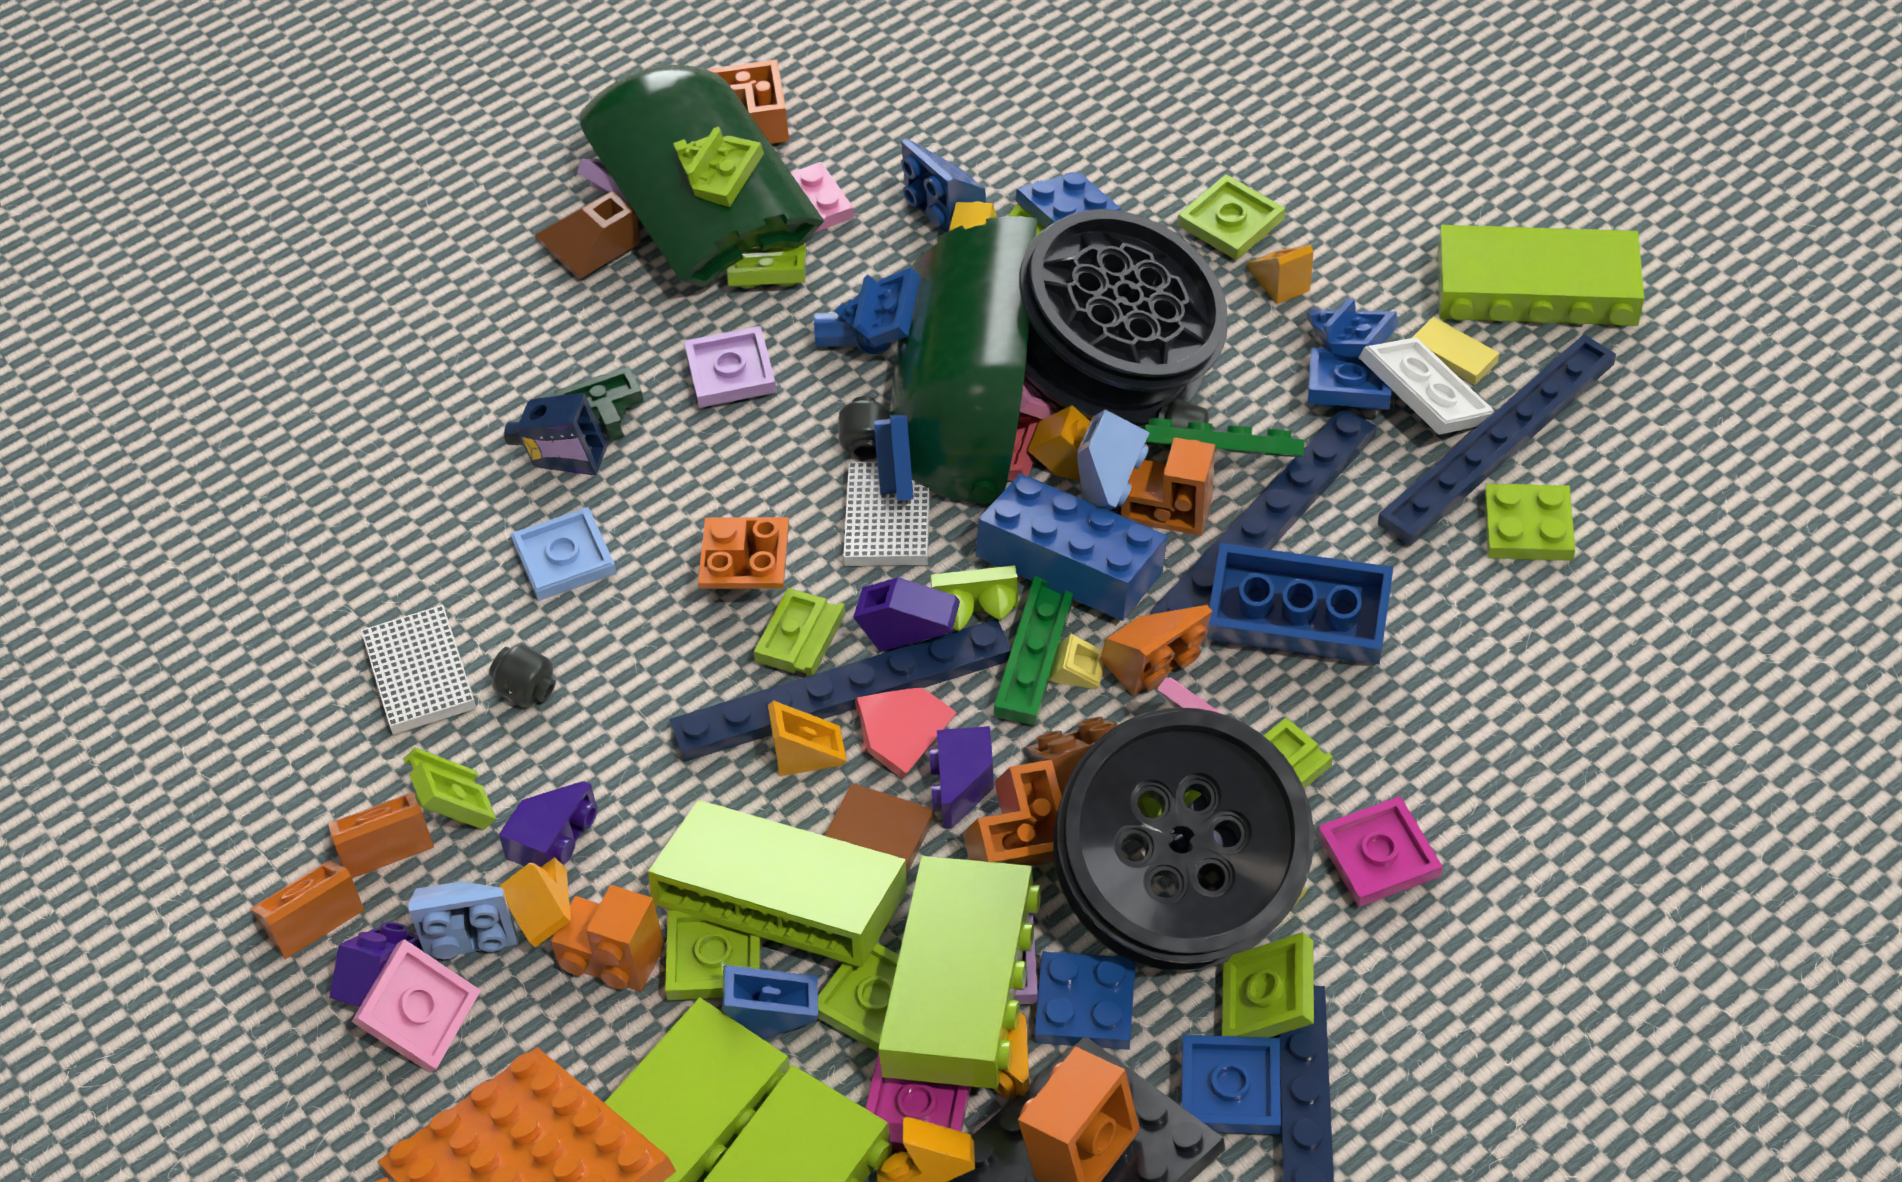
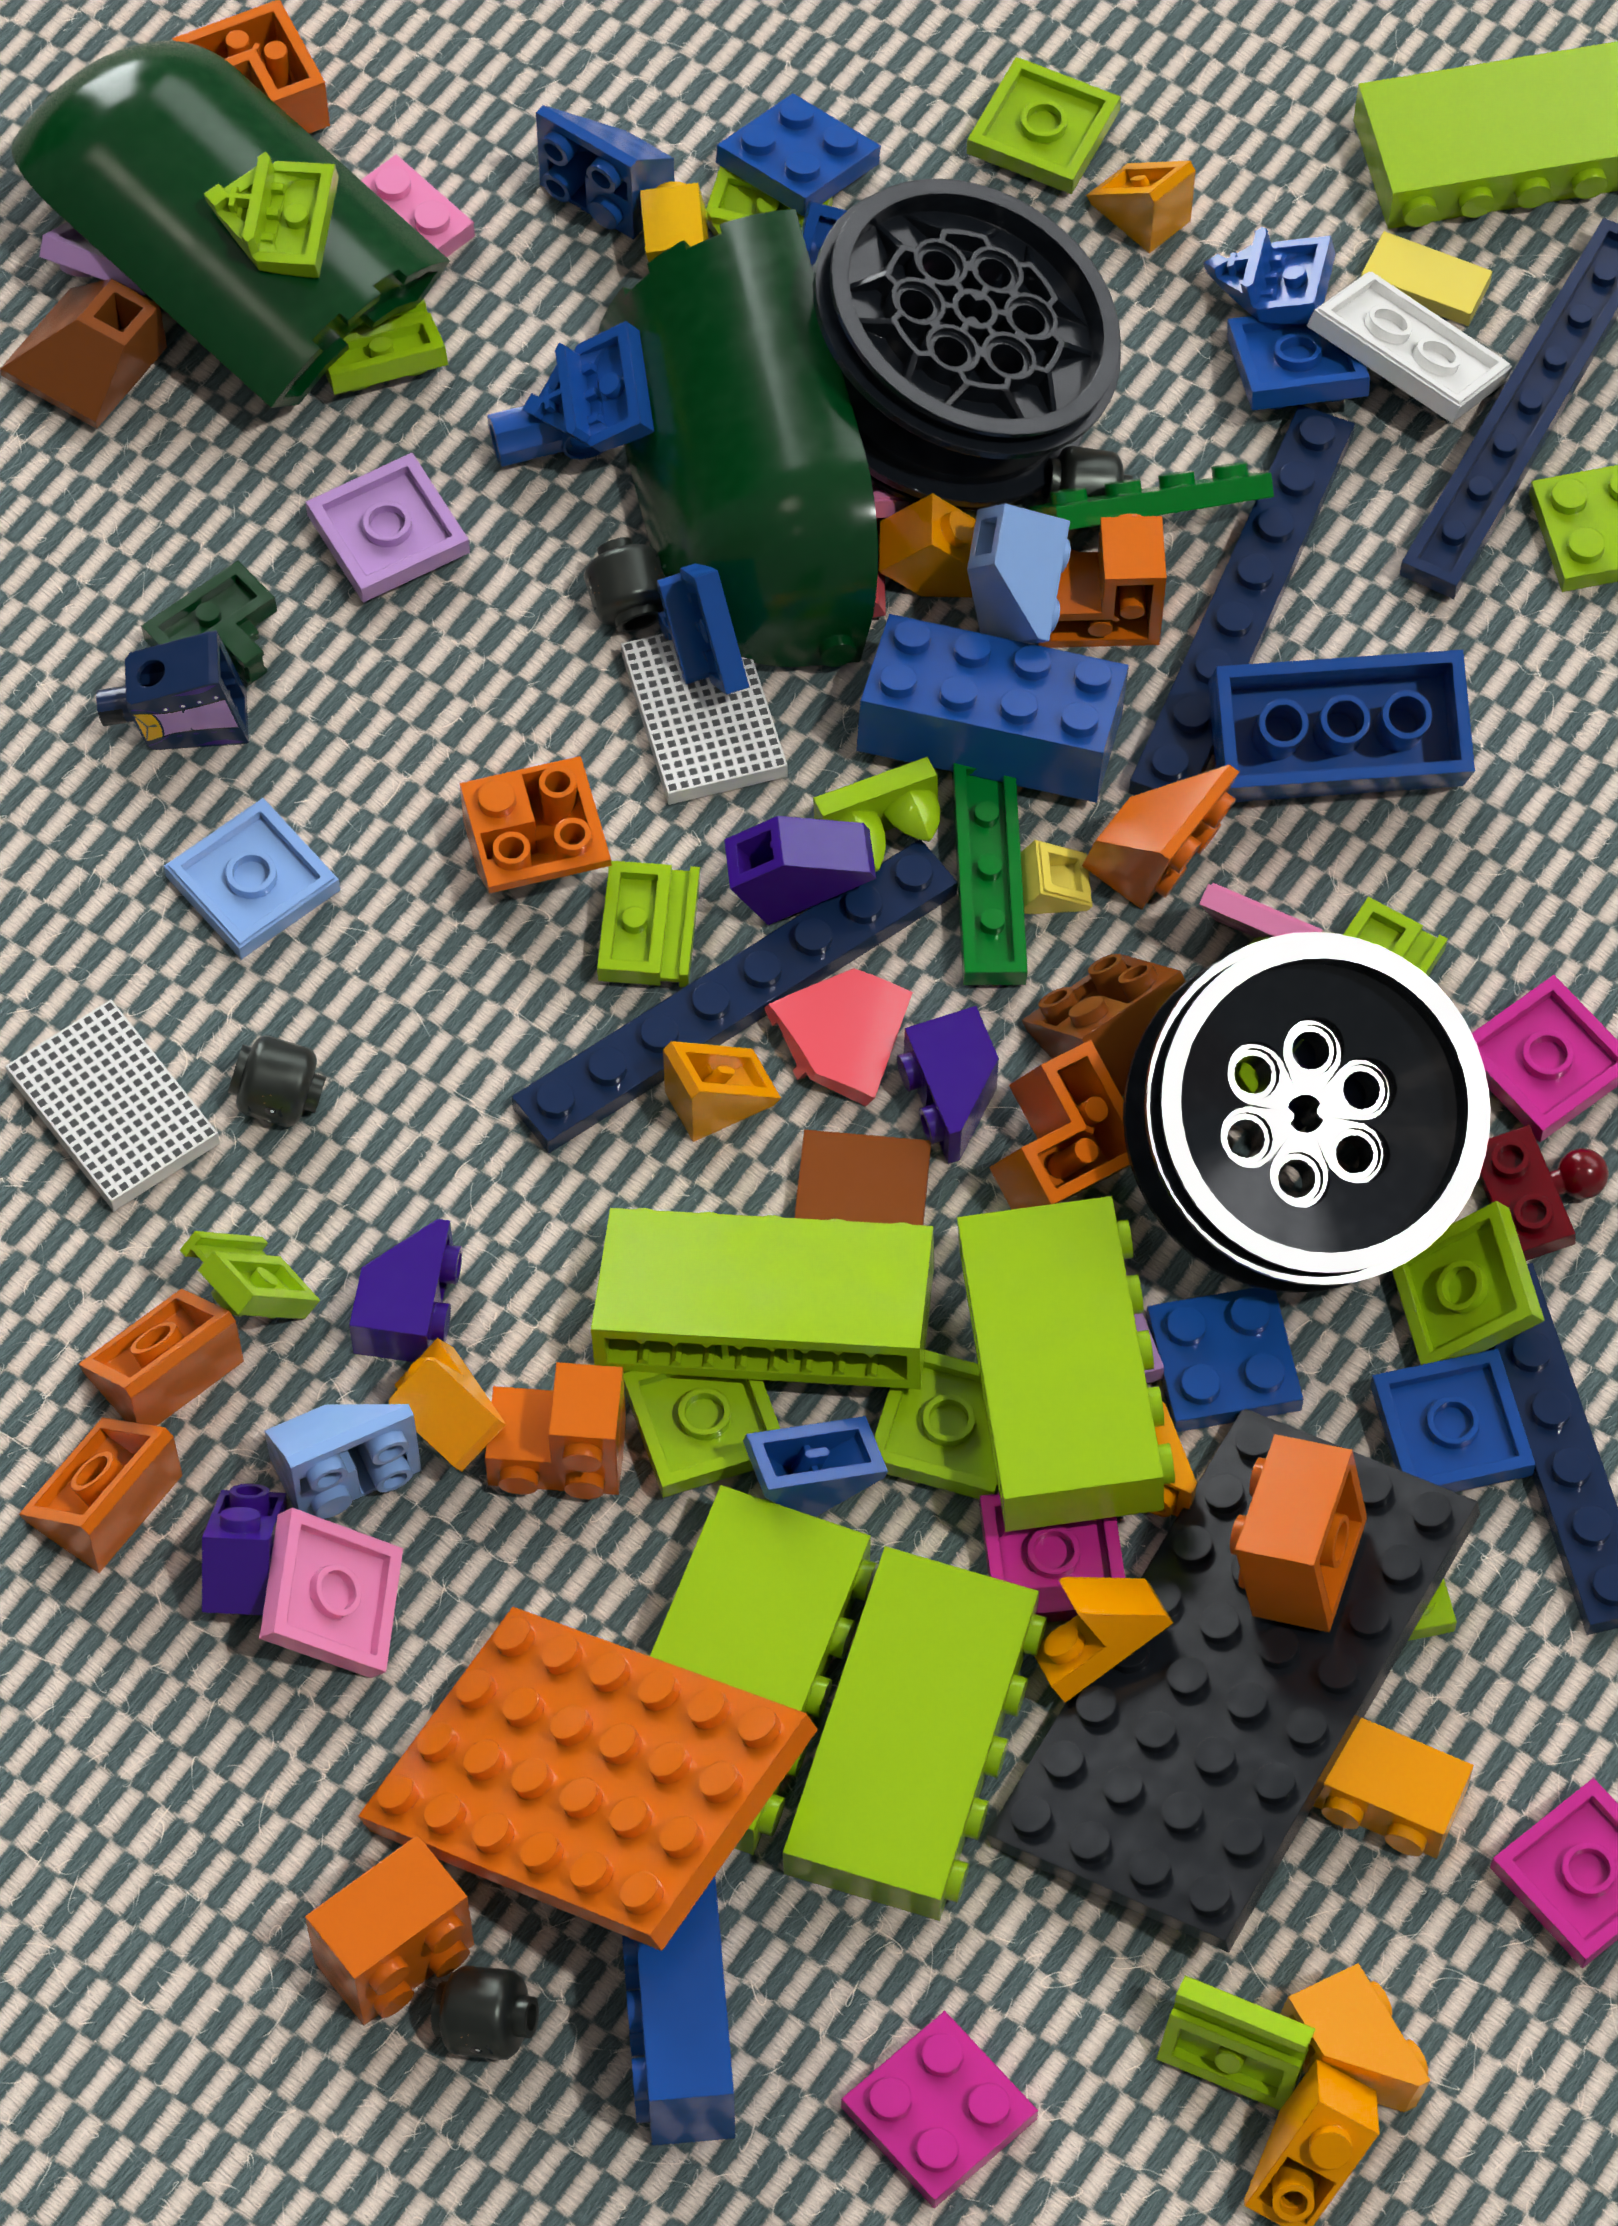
camera: 20 degrees left, 10 degrees up
(1337, 938) = (1520, 1179): none -> dark red plate

